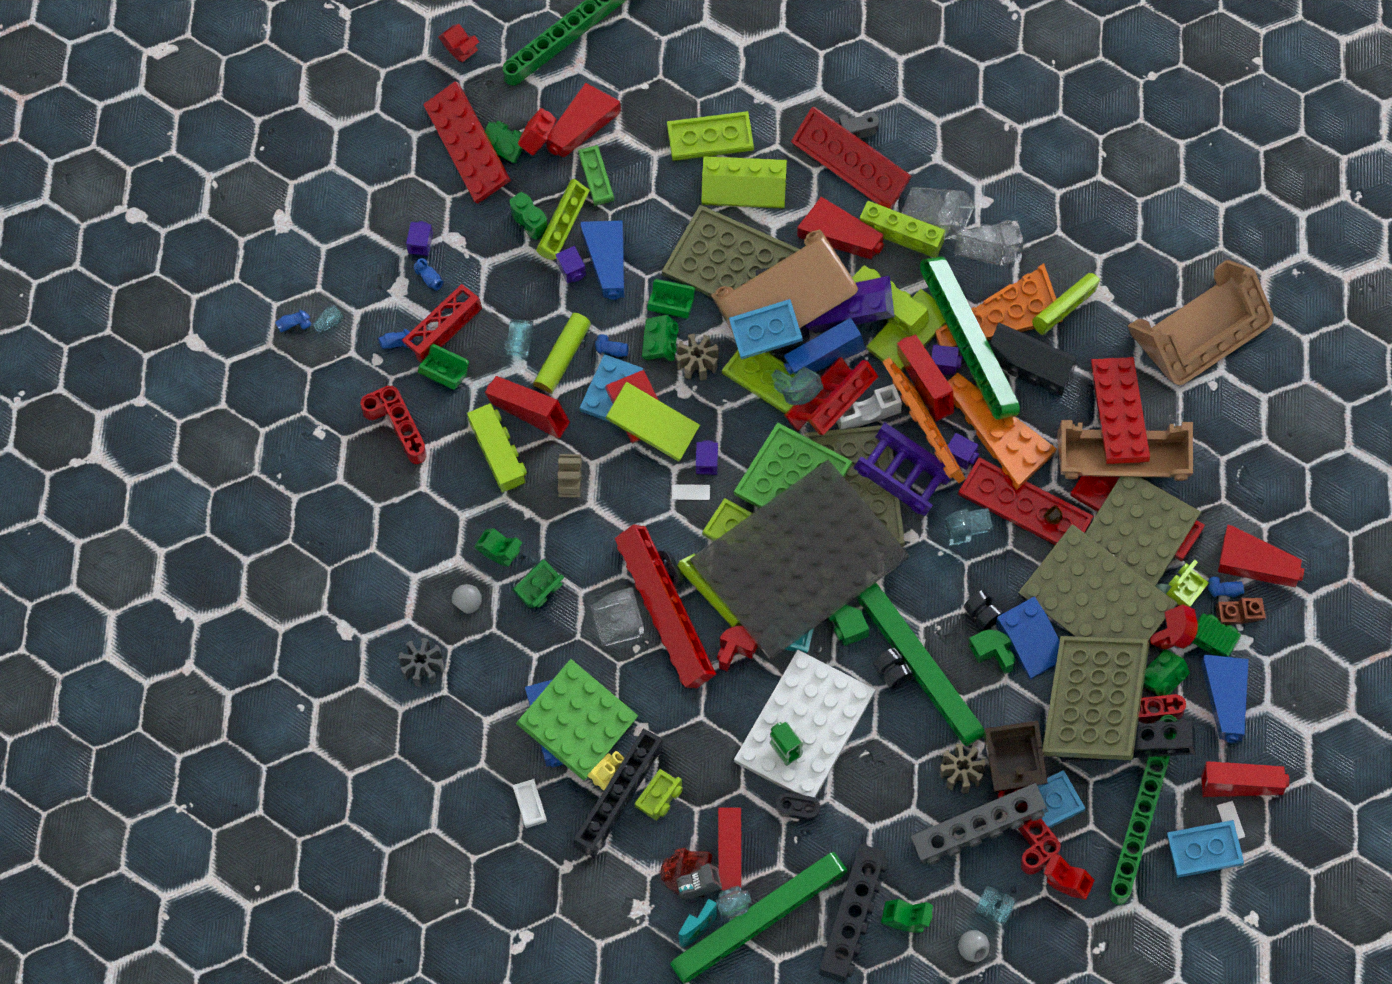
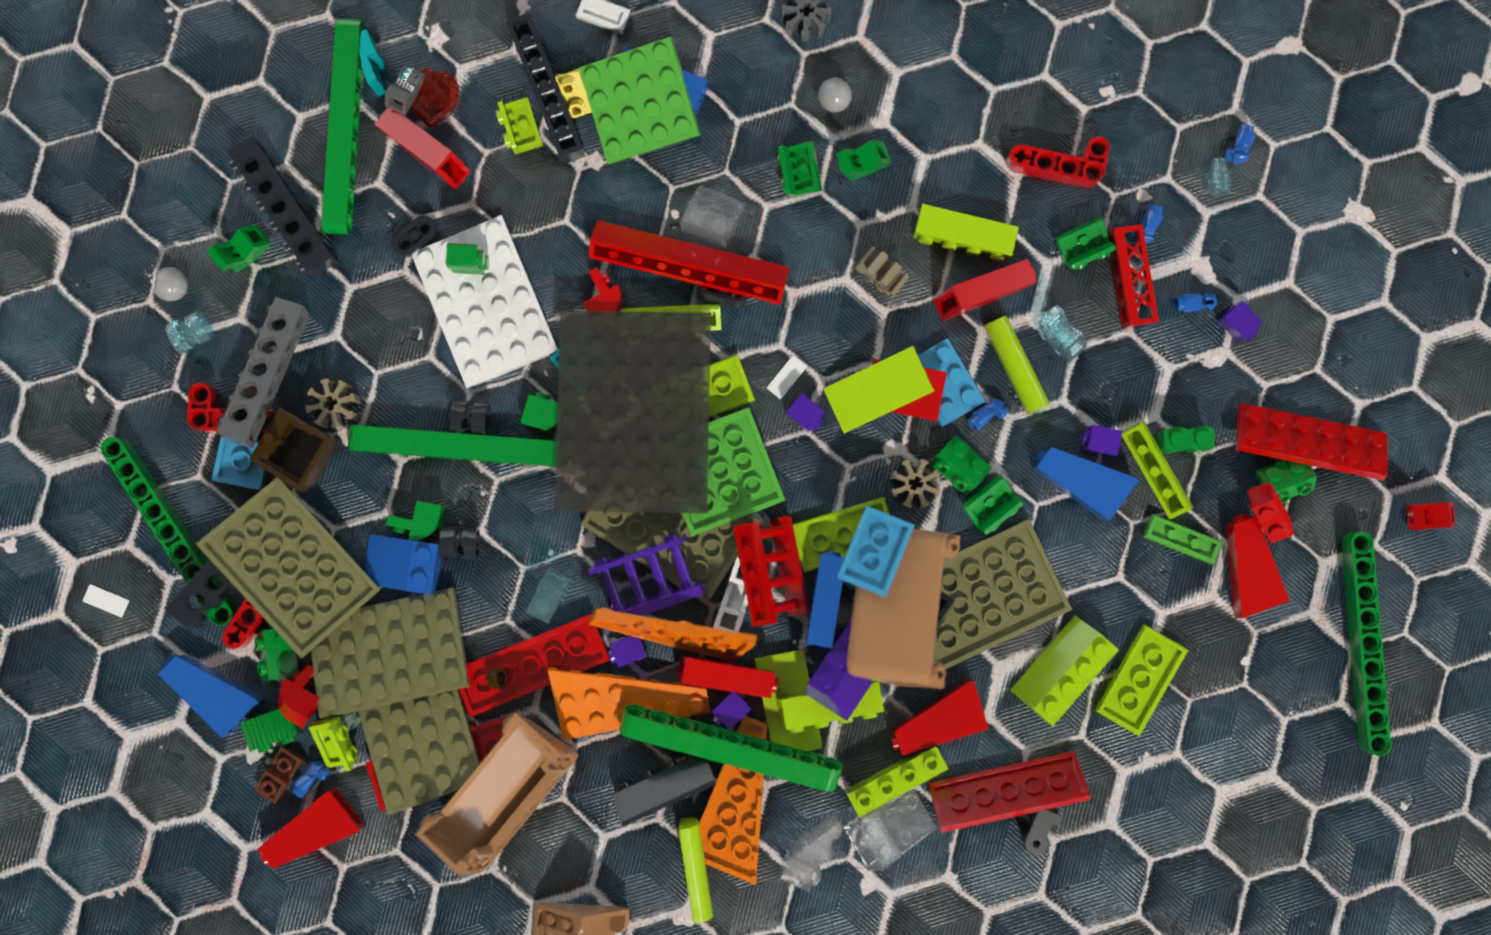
camera: 125 degrees right, 20 degrees up
(733, 902) = (366, 107): clear light blue head -> none
(800, 388) = (801, 549): clear light blue brick -> none
(1068, 879) = (161, 413): red brick -> none
(1120, 410) = (547, 827): red plate -> none
(1205, 848) = (94, 554): dark azure plate -> none
(1238, 779) = (122, 637): red slope -> none

